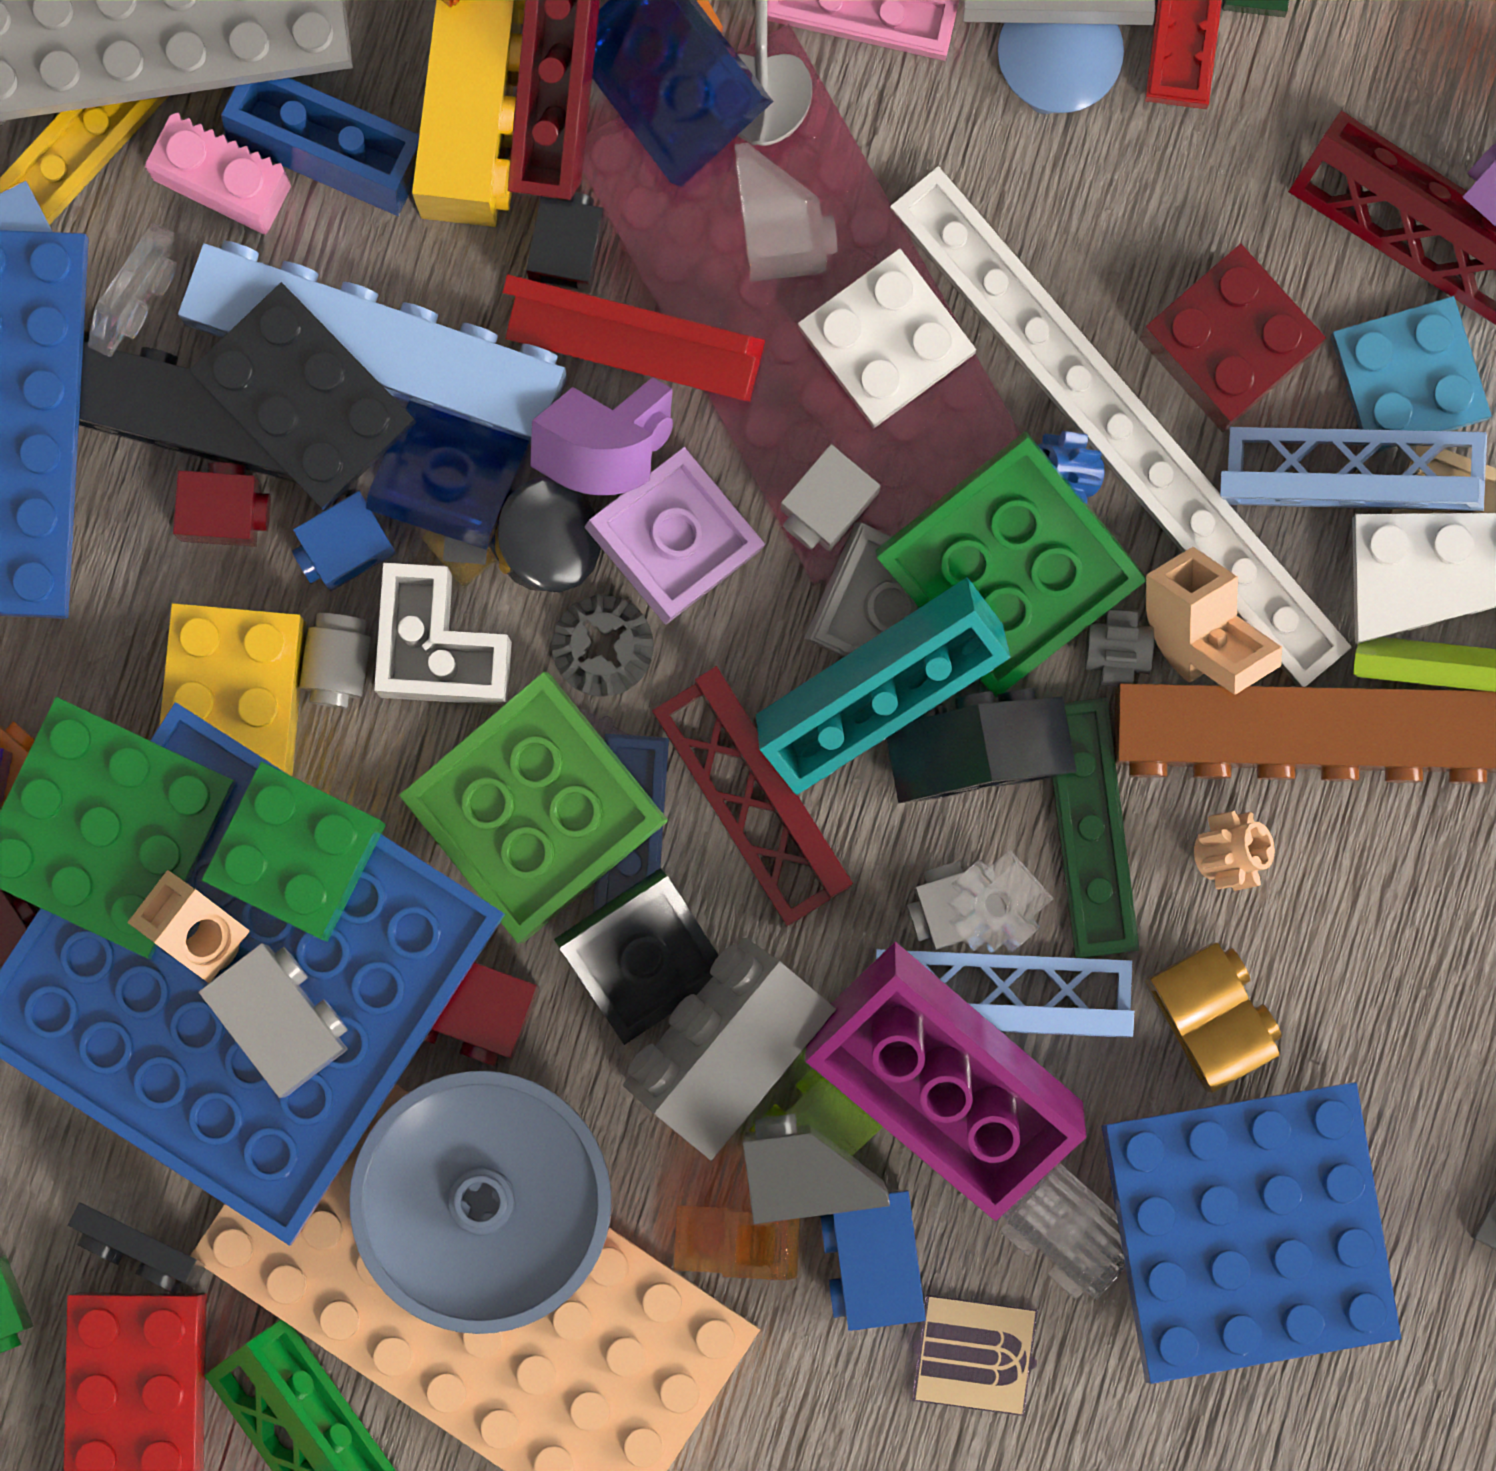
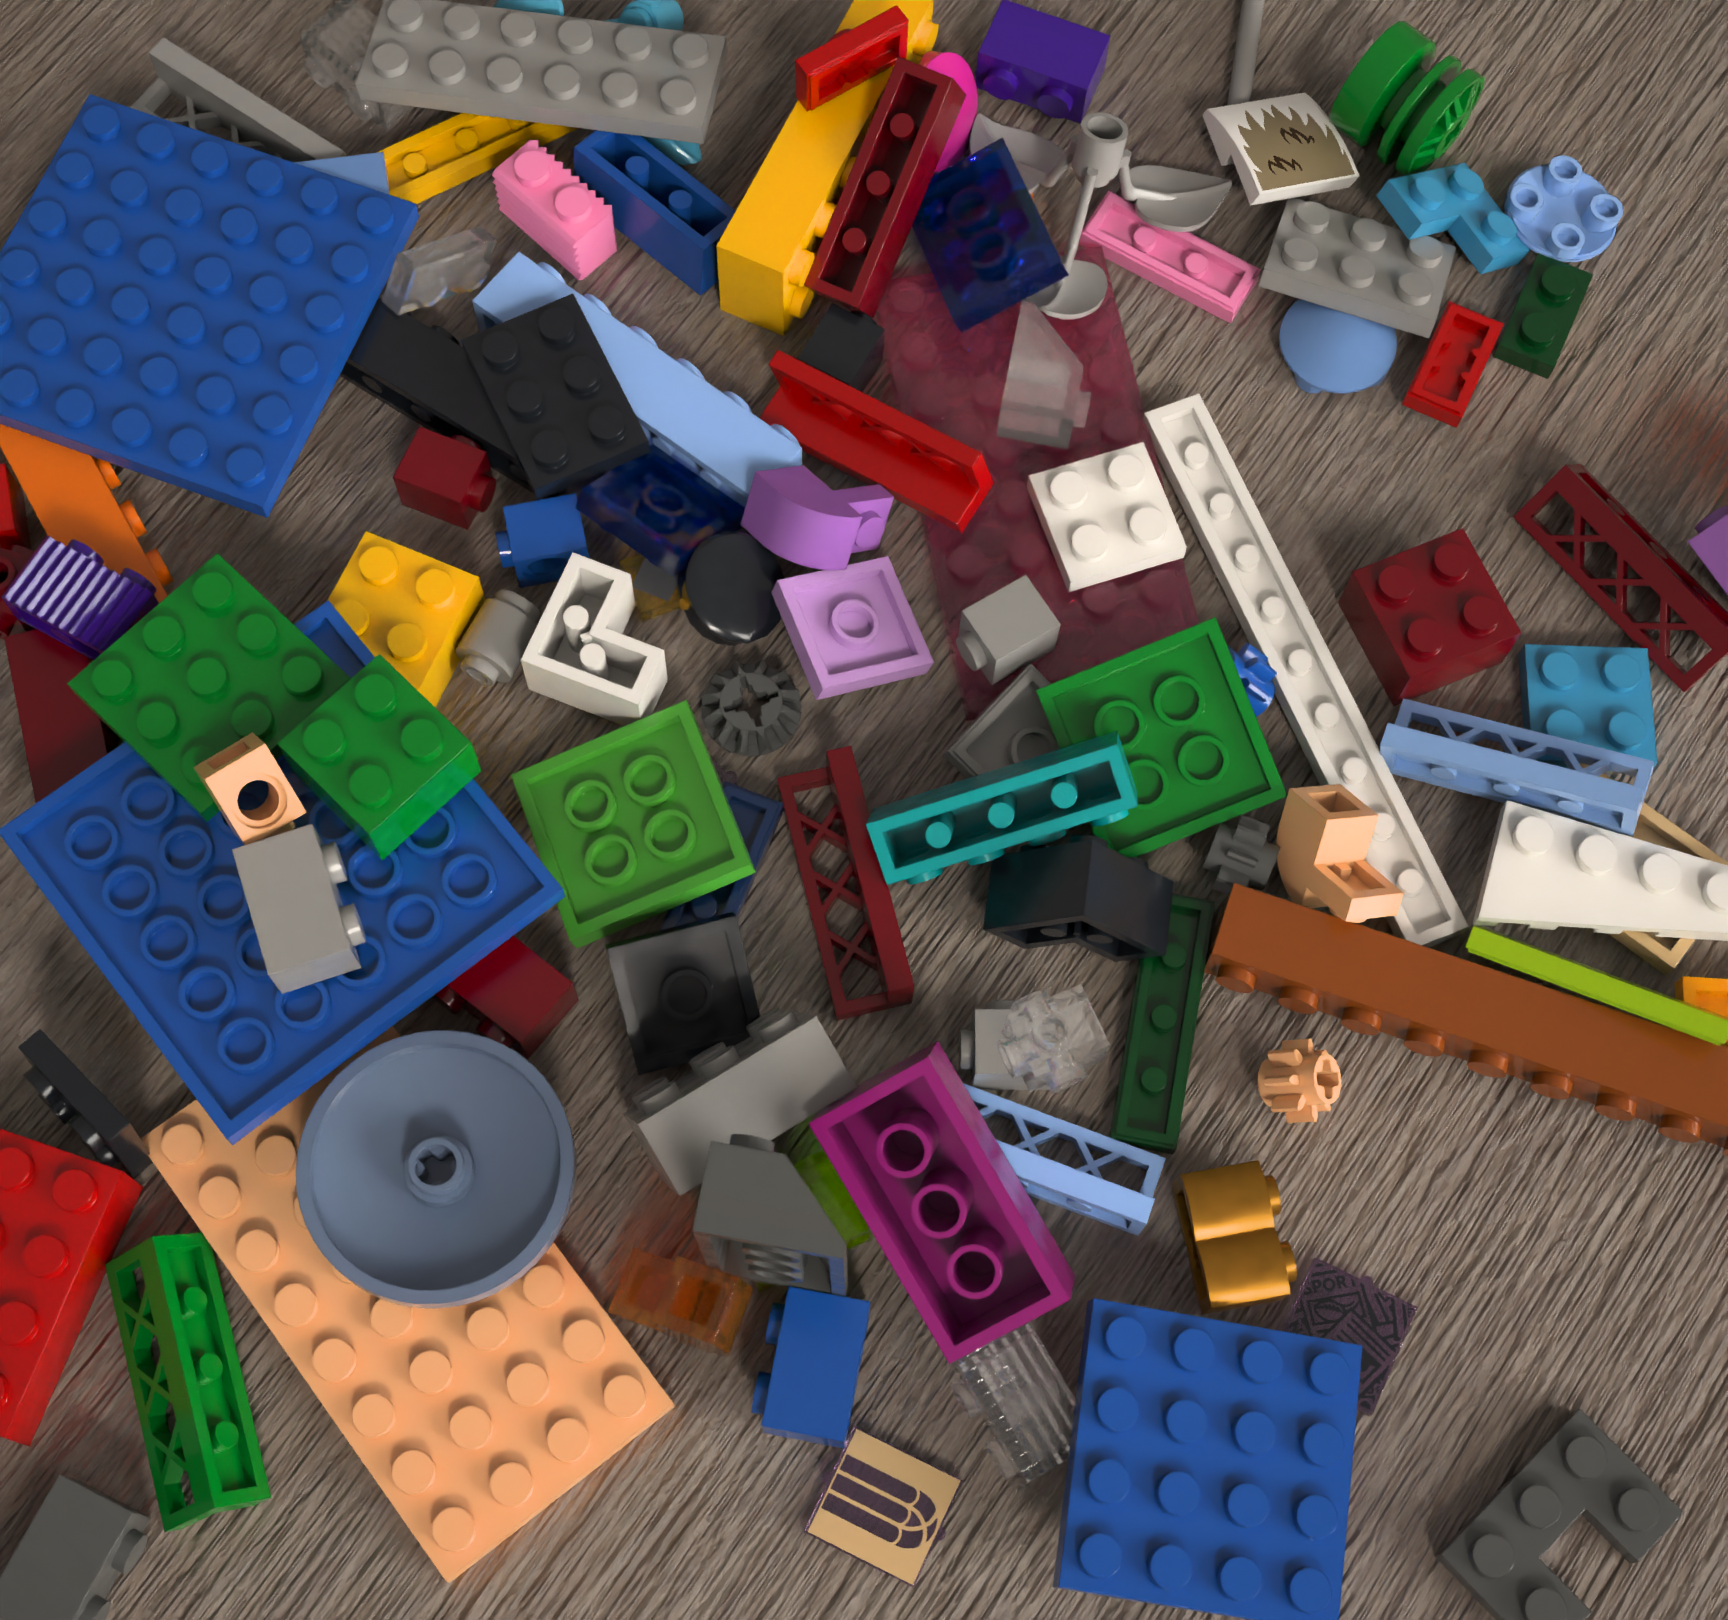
camera: 15 degrees right, 15 degrees down
(1342, 1049) = (1354, 1312): none -> clear purple piece

